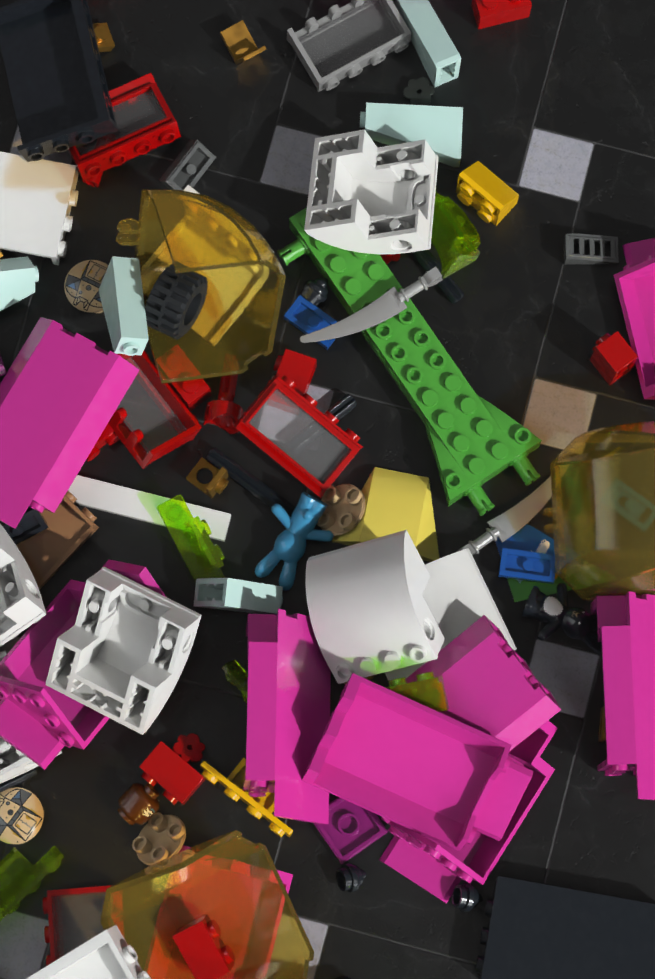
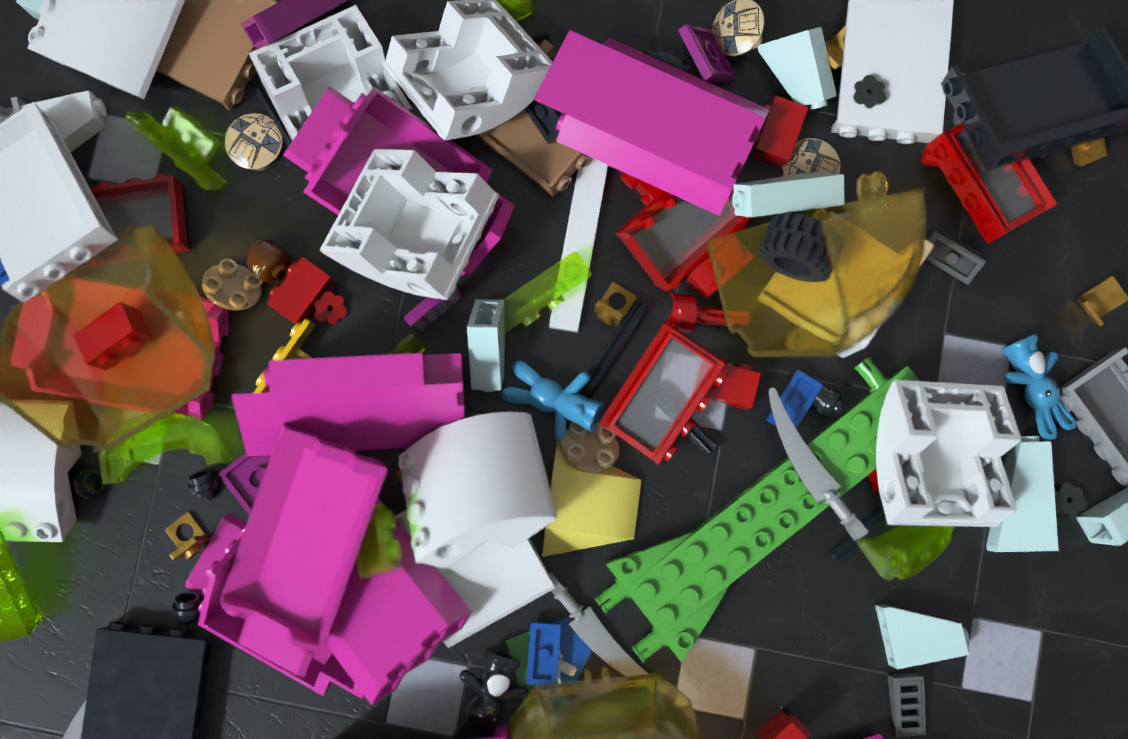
camera: 90 degrees right, 5 degrees up
(26, 220) = (870, 85): none -> pearl dark grey plant
(57, 307) = (779, 131): none -> red brick
(206, 653) = (429, 310): none -> magenta tile
(301, 890) = (166, 434): none -> clear neon green windscreen
(319, 104) = (1041, 391): none -> dark azure animal
(409, 892) = (189, 548): none -> pearl gold bracket
(485, 193) = (960, 582): yellow slope -> none
(532, 234) = (919, 638): none -> light aqua slope

